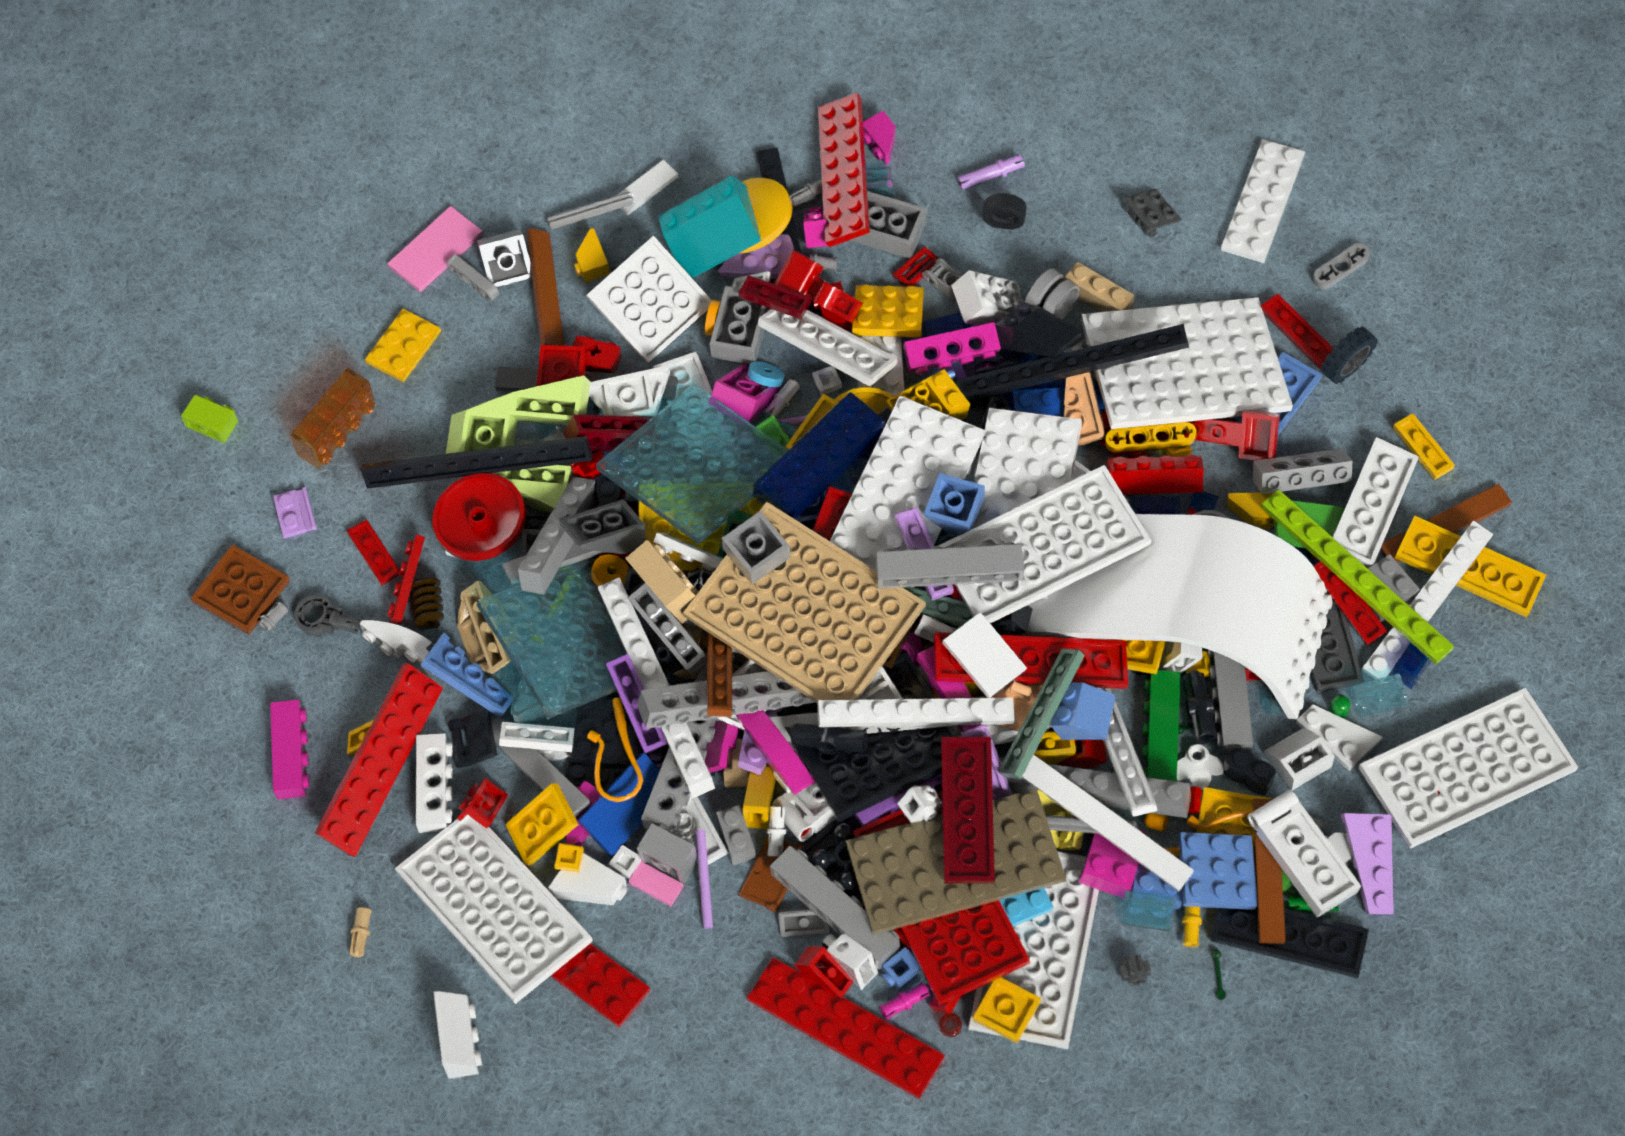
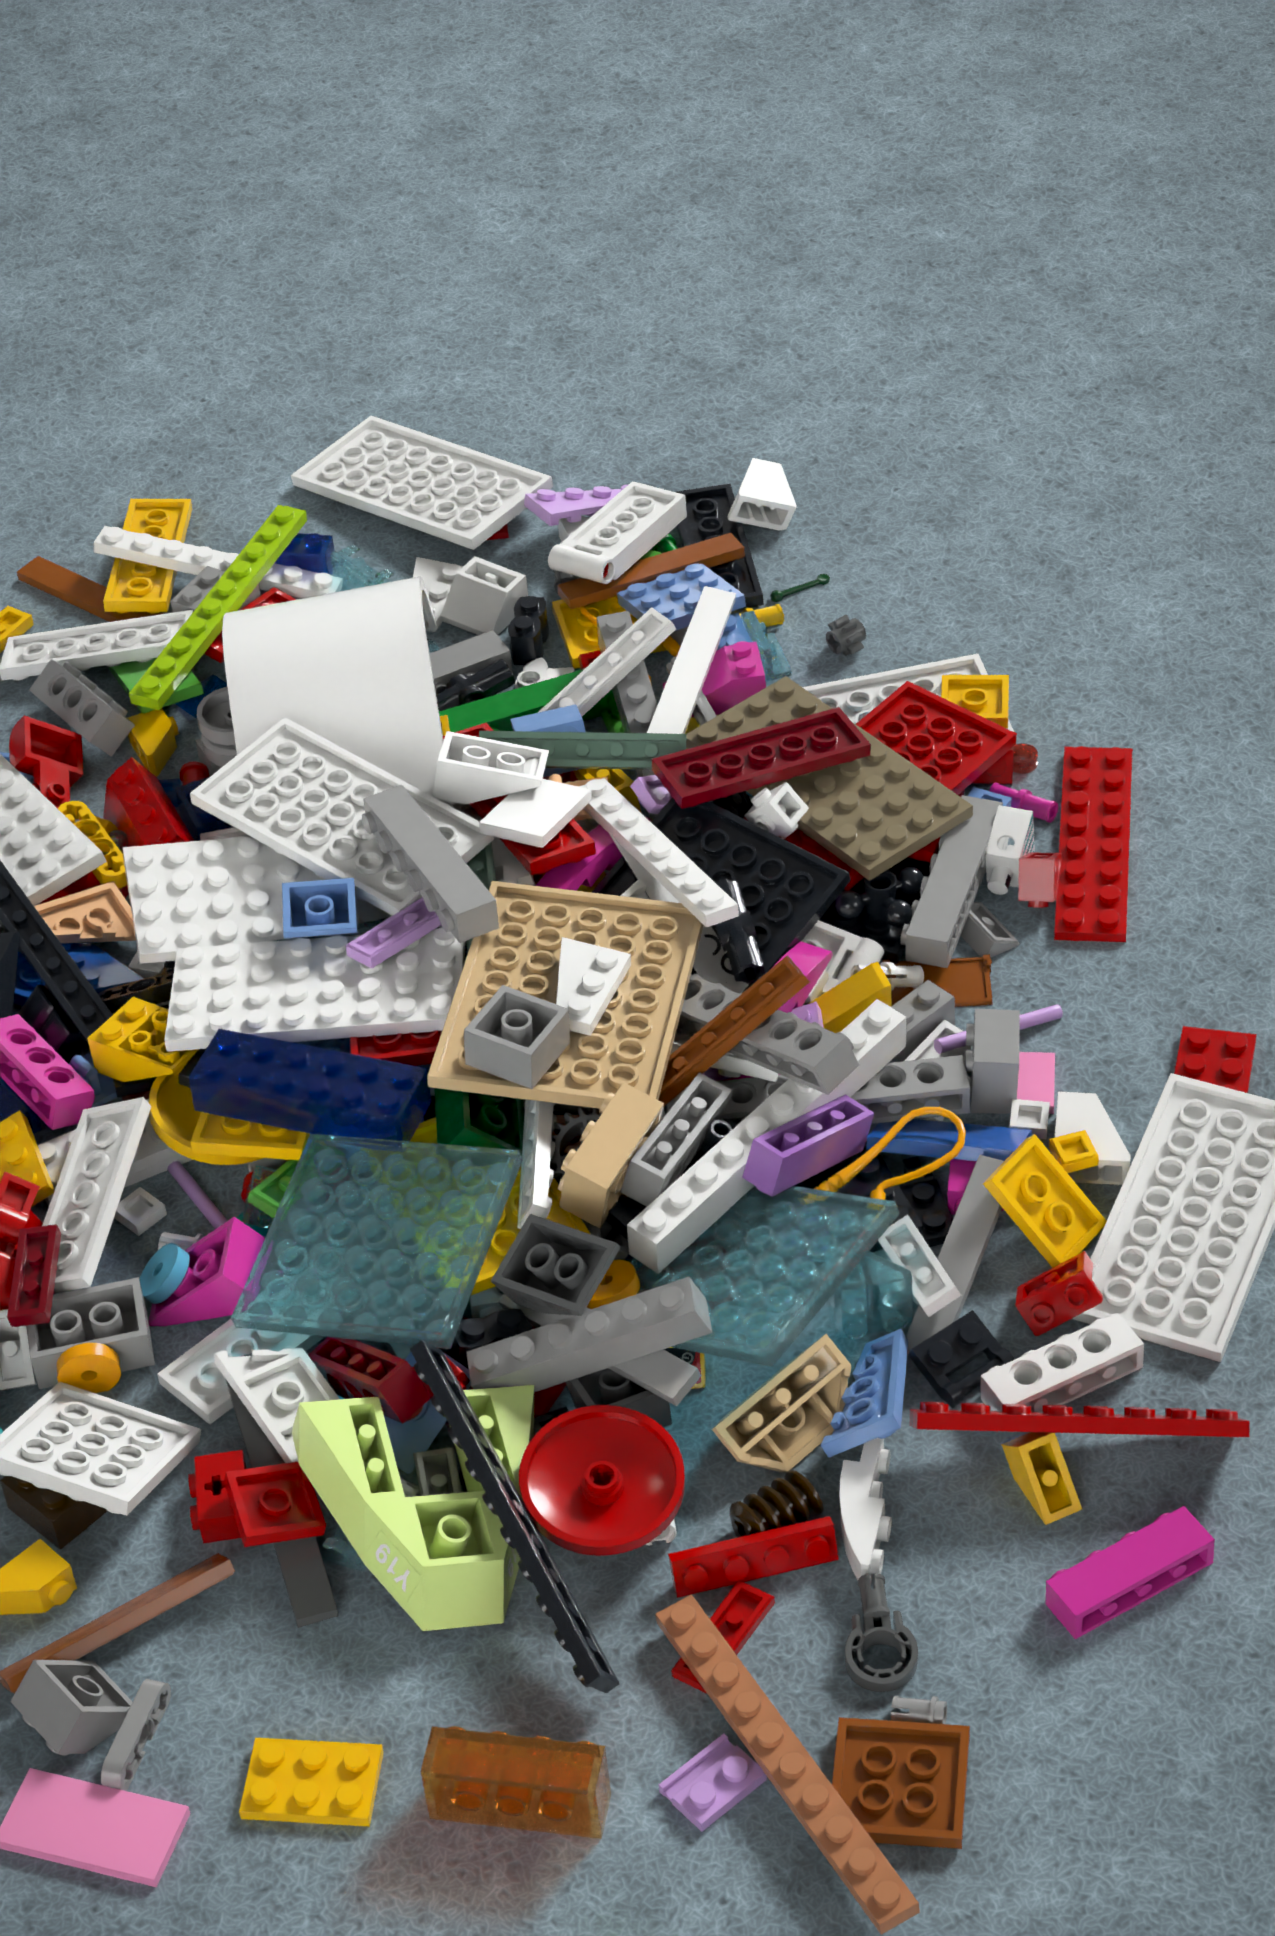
camera: 115 degrees left, 20 degrees down
(279, 540) = (788, 1765): none -> nougat plate
(798, 614) = (588, 981): none -> white wing
(1038, 642) = (485, 768): none -> white slope
(1327, 986) = (764, 497): none -> white slope

